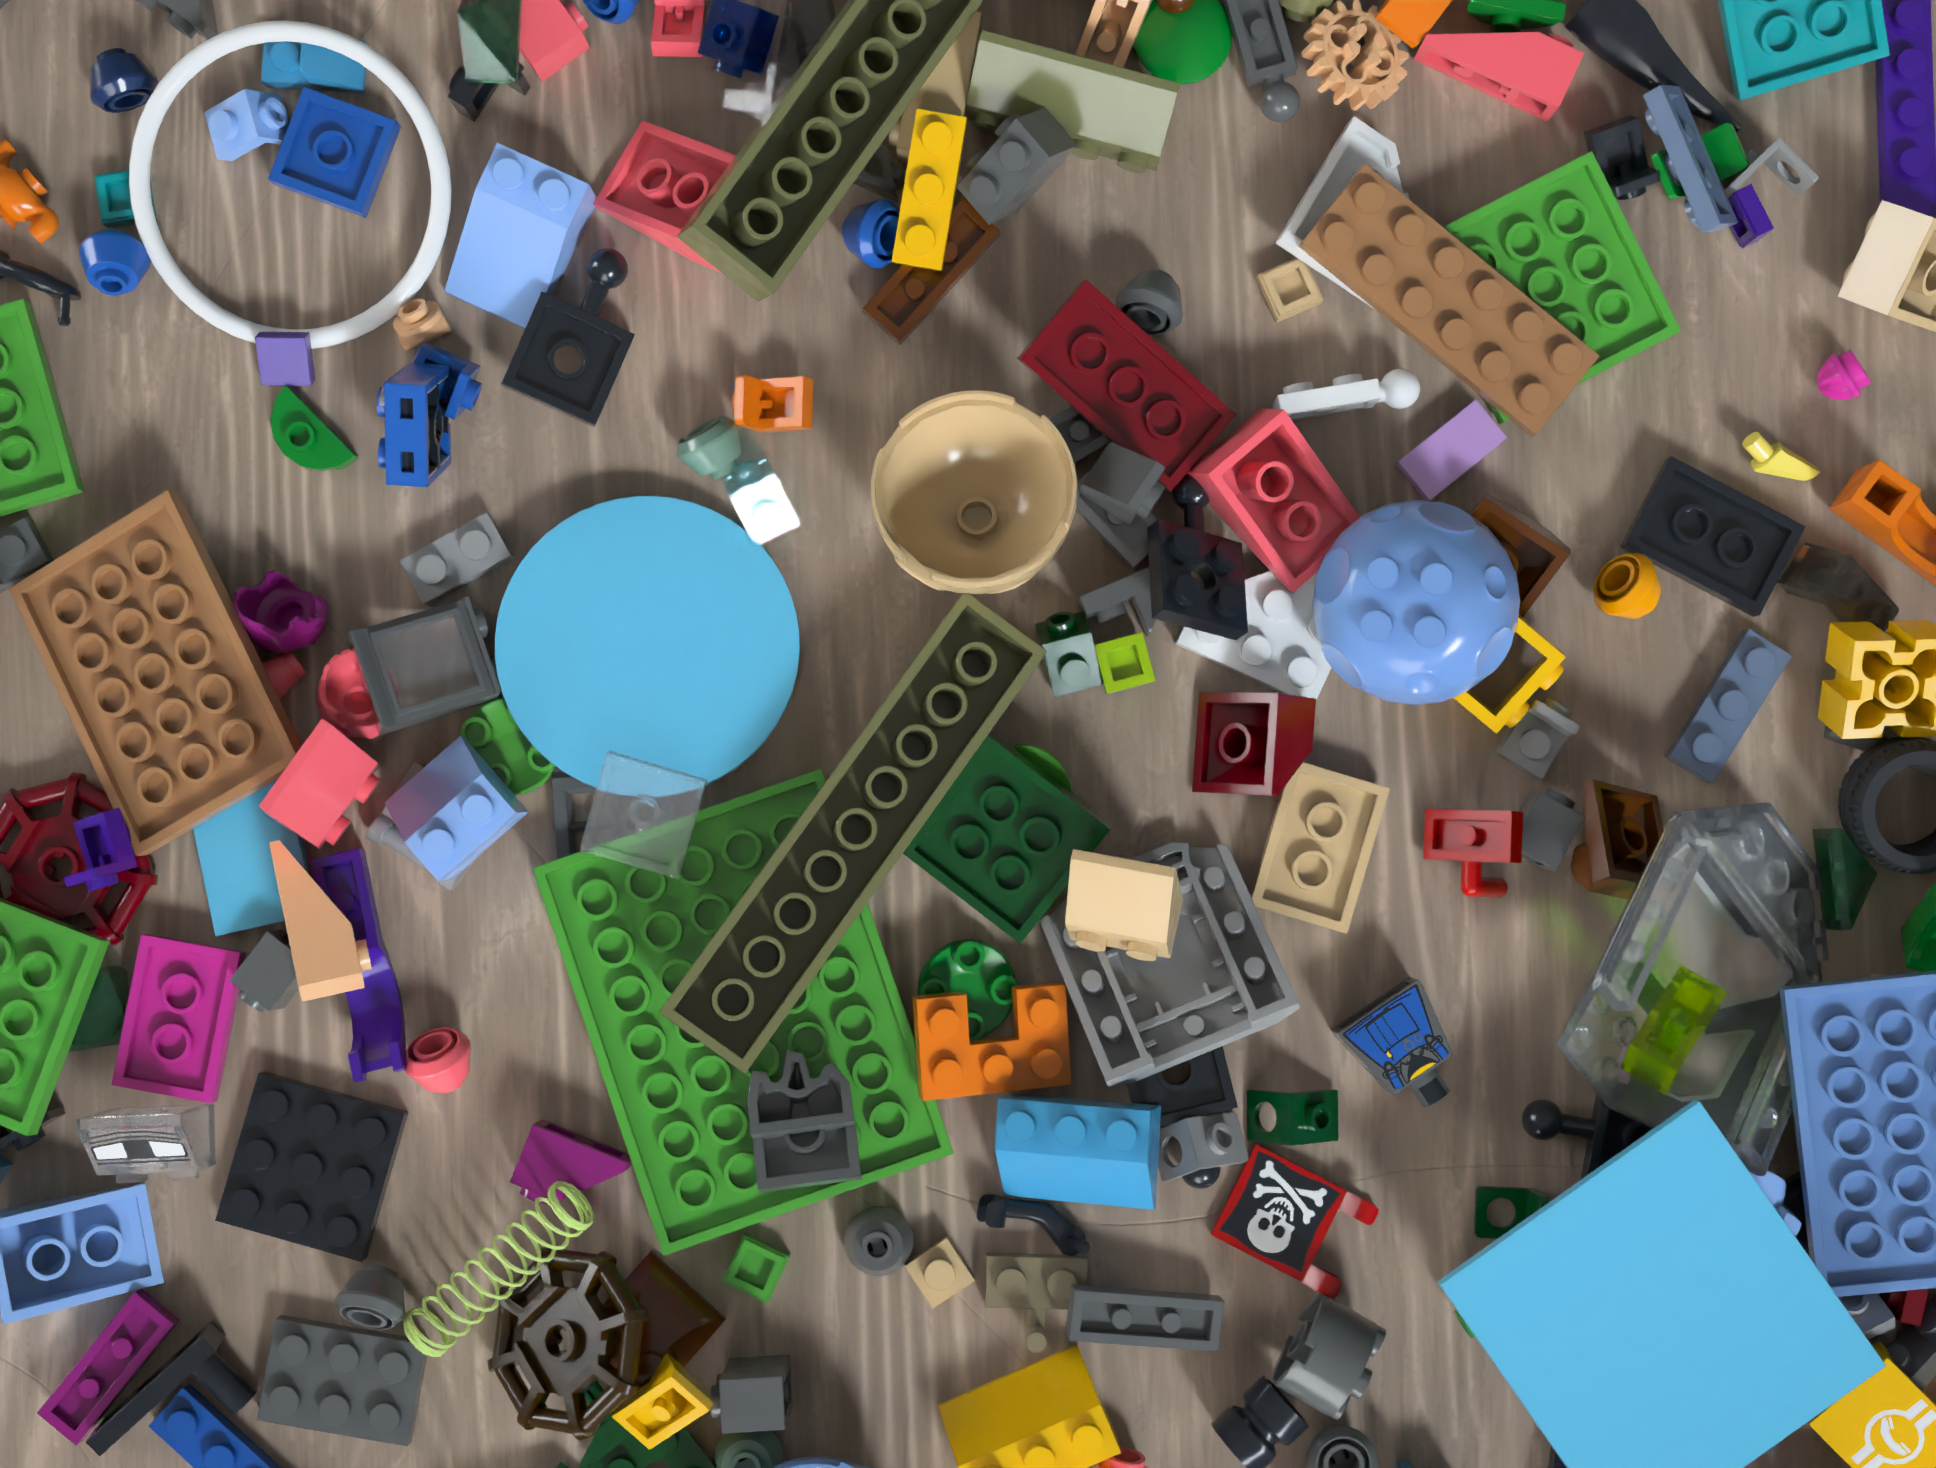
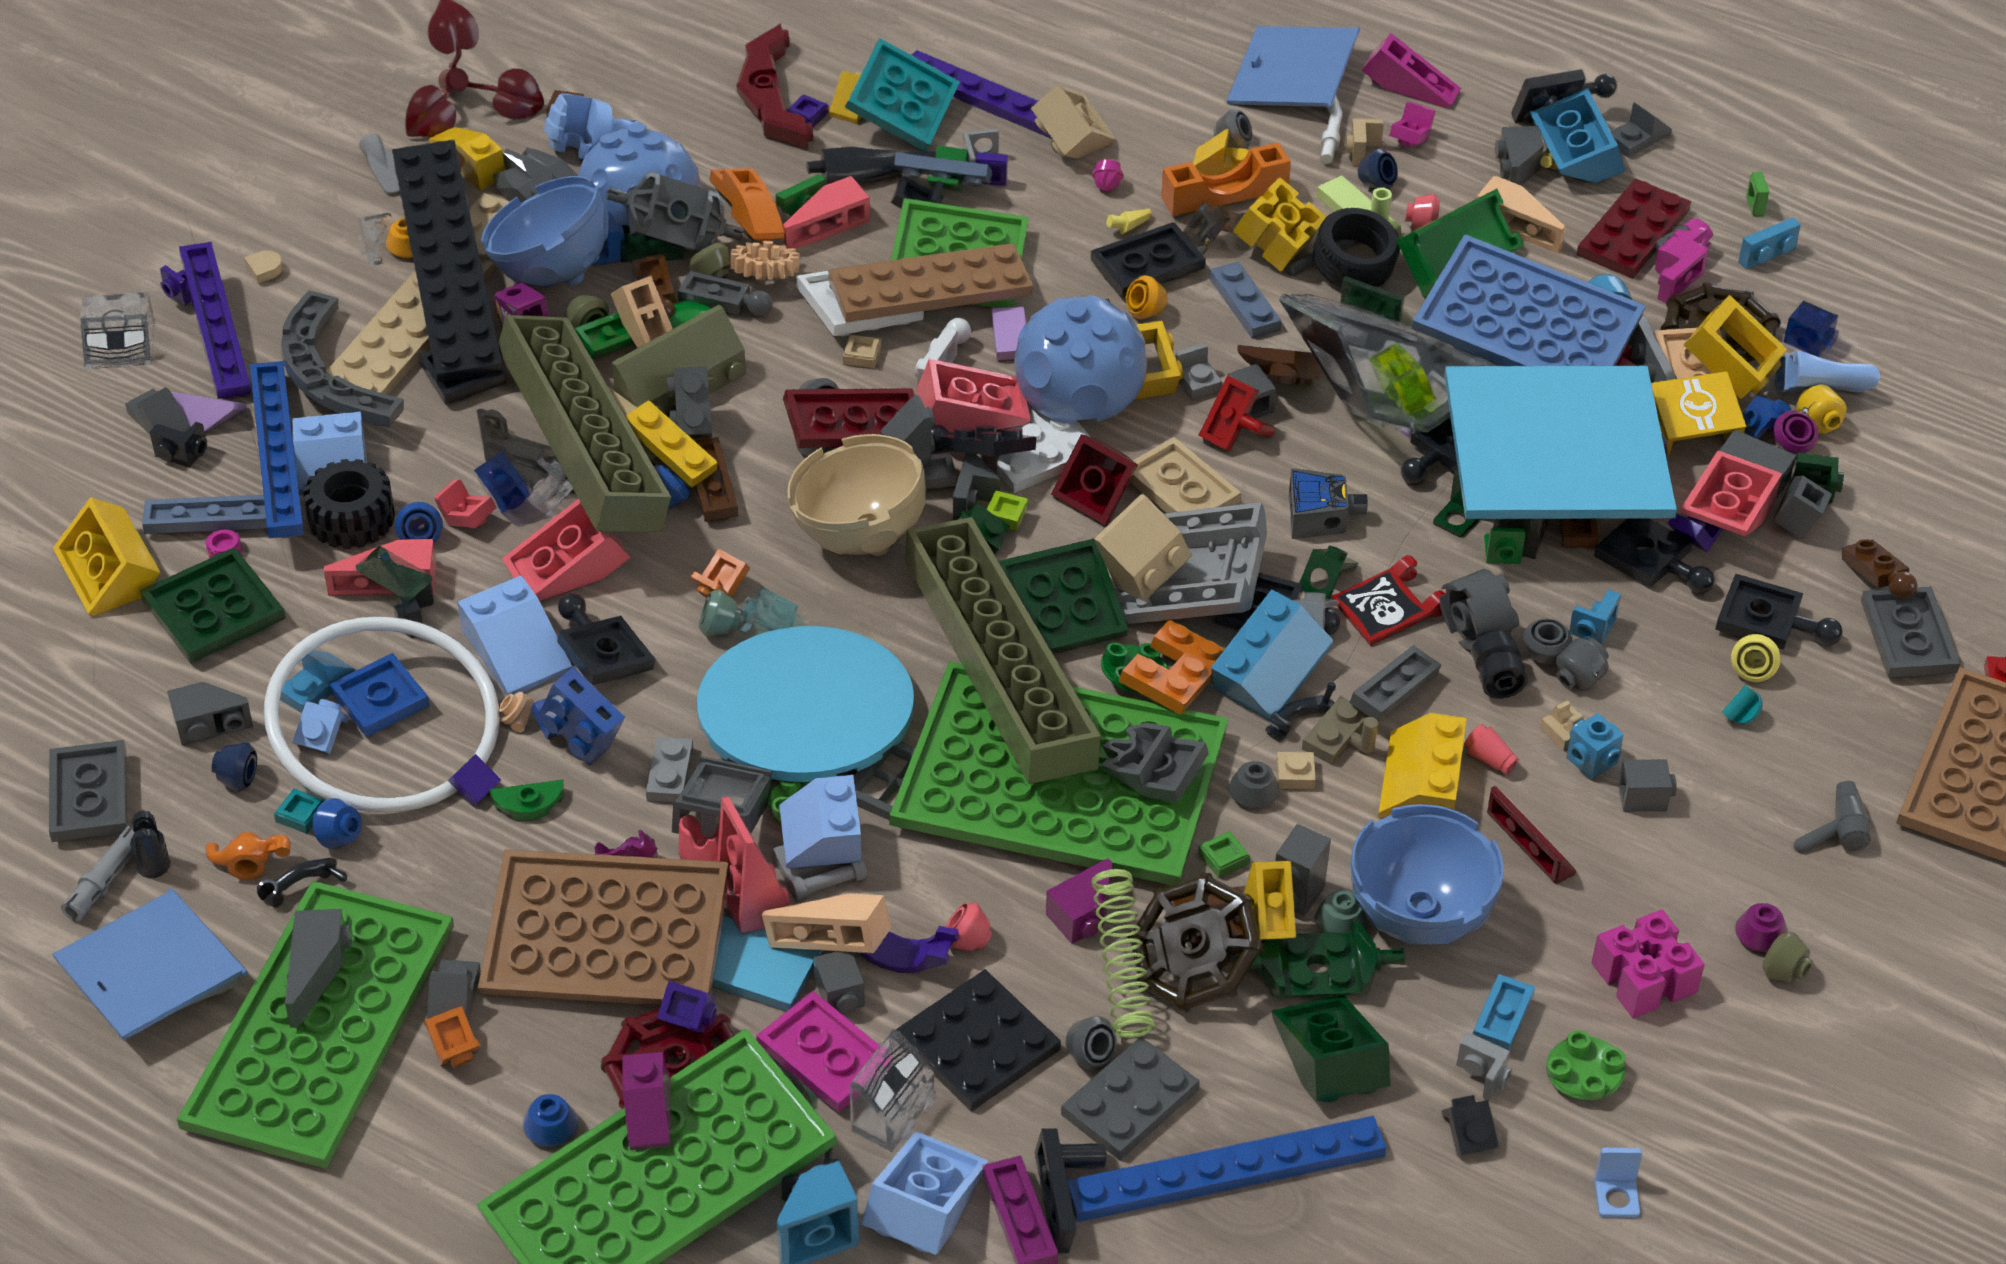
camera: 60 degrees left, 40 degrees down
(643, 814) = (905, 740): clear plate -> none

